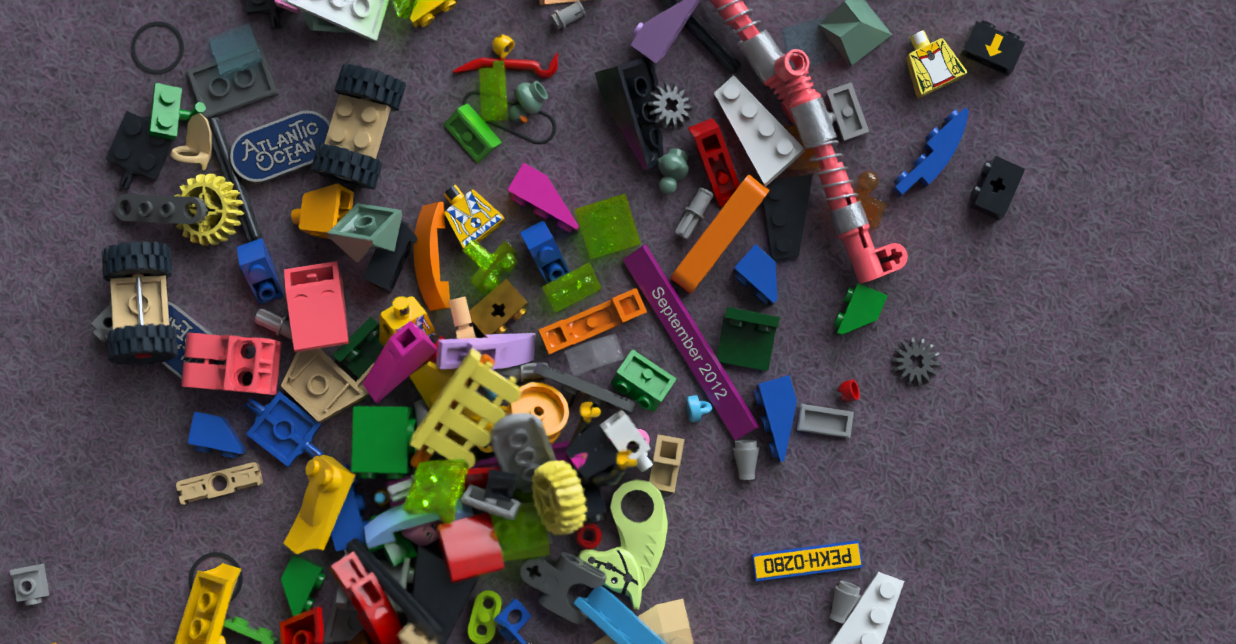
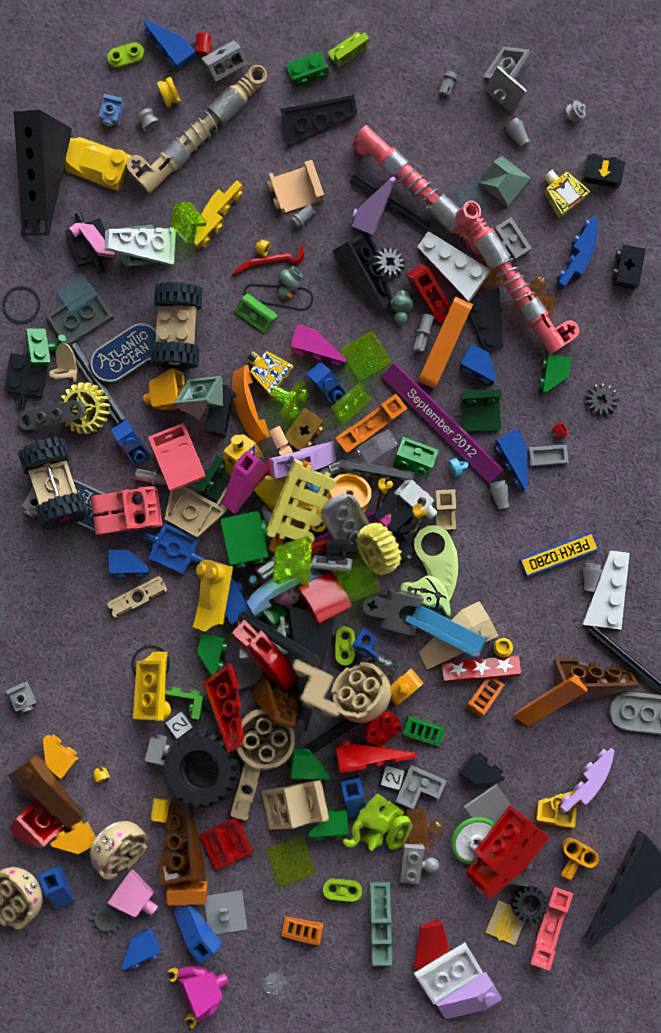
camera: 15 degrees left, 0 degrees up
(493, 92) = (264, 281): clear neon green bracket -> none
(588, 544) = (398, 577): red plate -> none

